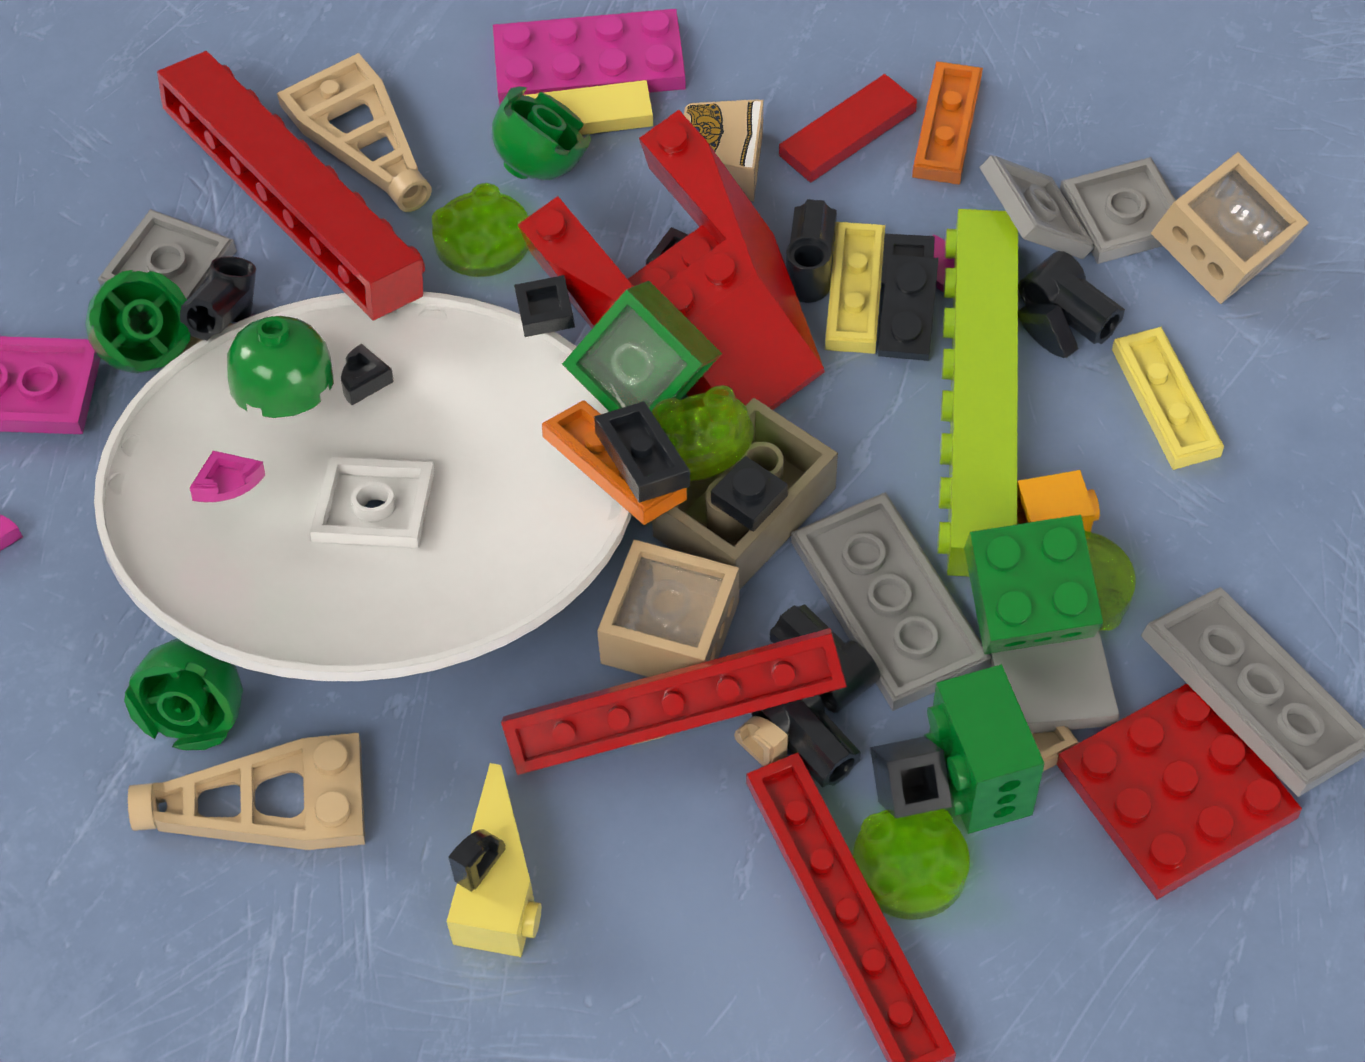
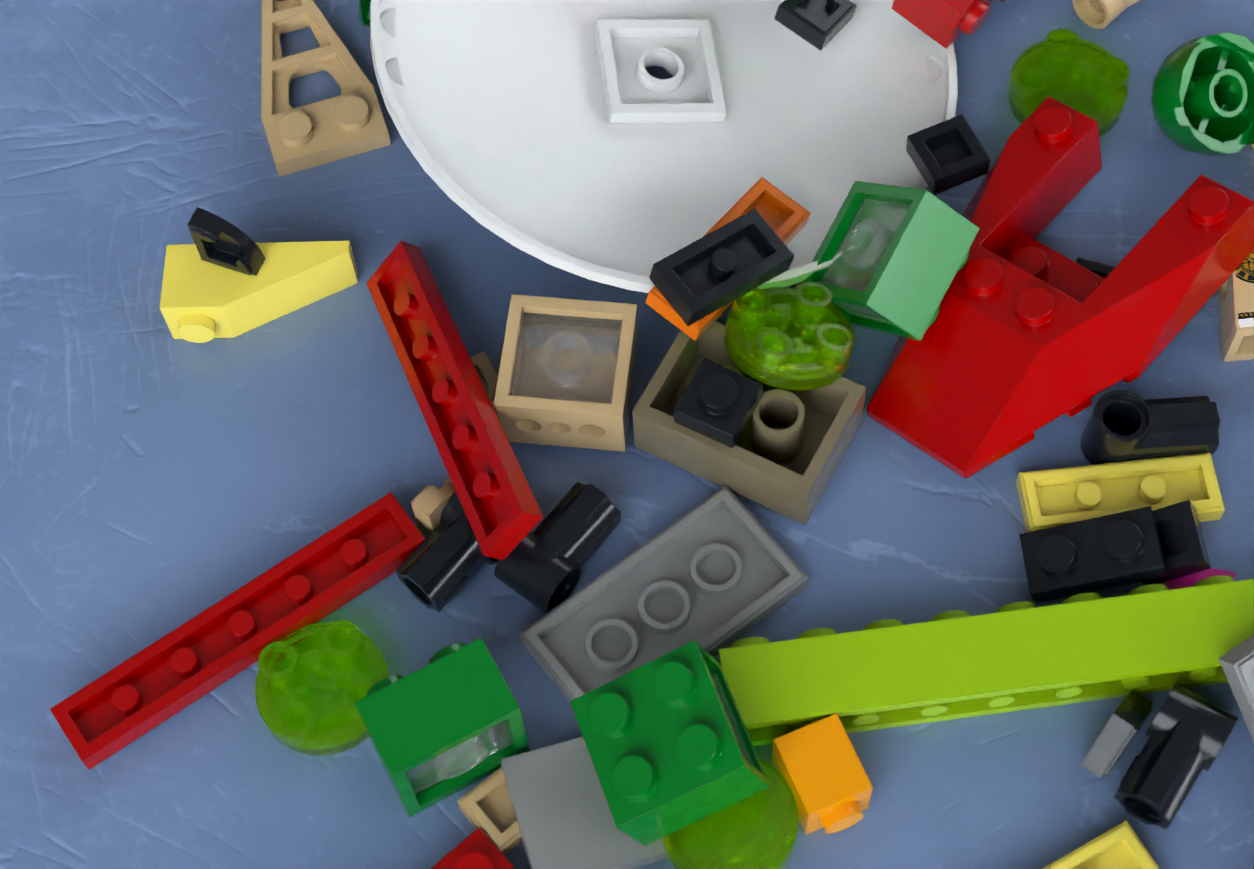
camera: 80 degrees right, 5 degrees up
(910, 777) = (396, 644): black brick -> none

